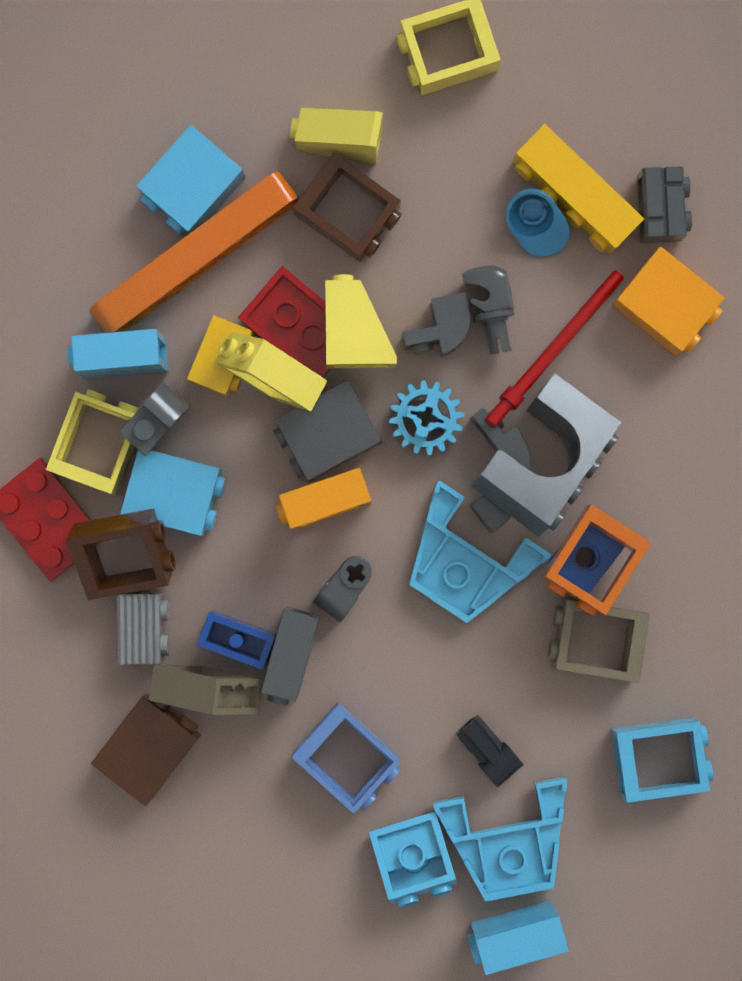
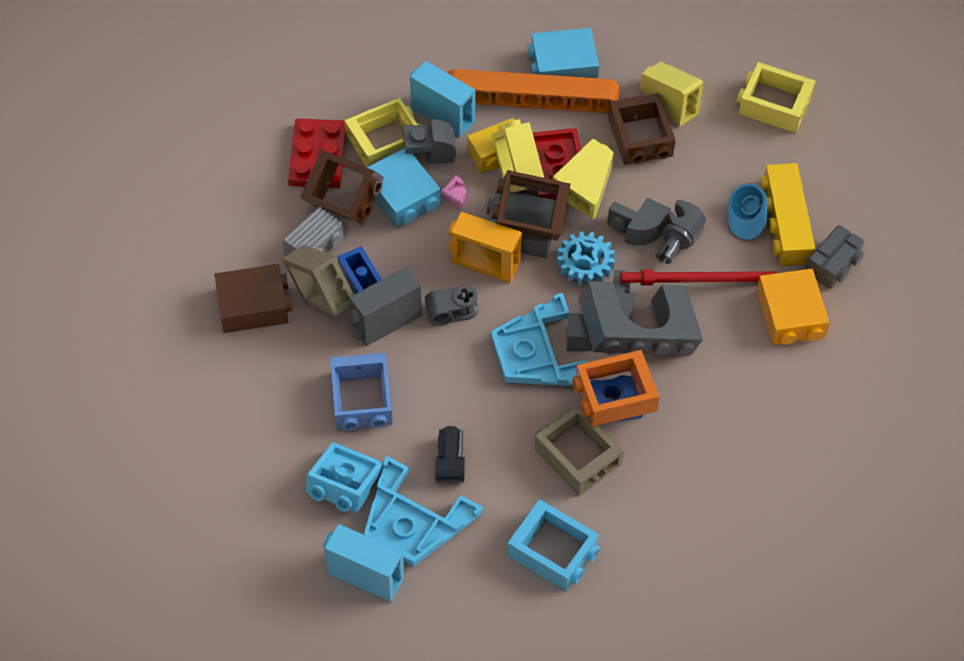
camera: 45 degrees right, 30 degrees down
(226, 445) = (455, 192): none -> bright pink tile
(374, 411) = (559, 188): none -> reddish brown window

